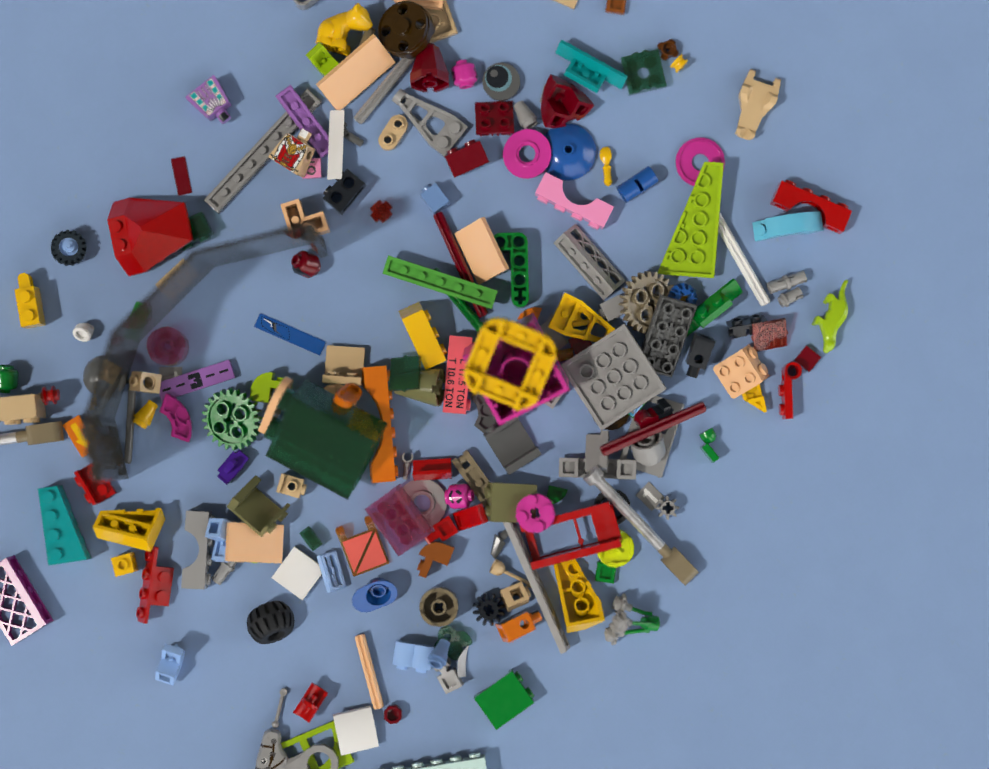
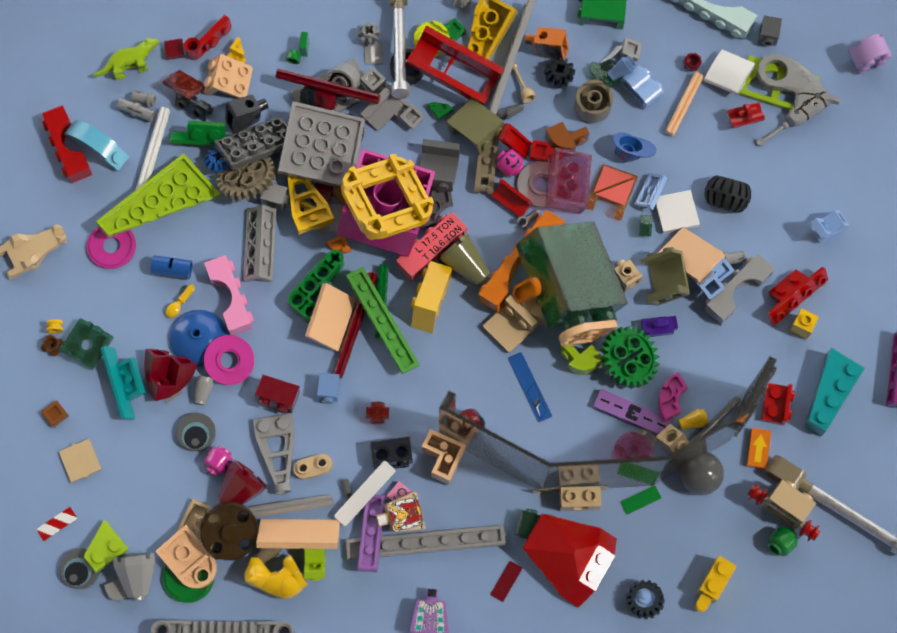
camera: 135 degrees left, 15 degrees down
(83, 331) = (688, 525): white tile -> none
(130, 528) = (776, 341): yellow wedge -> none
(405, 373) = (469, 275): clear green piece -> none
(494, 118) = (227, 408): dark red hinge -> none
(516, 589) = (525, 61): tan brick -> none
(524, 514) = (471, 90): dark pink plate -> none

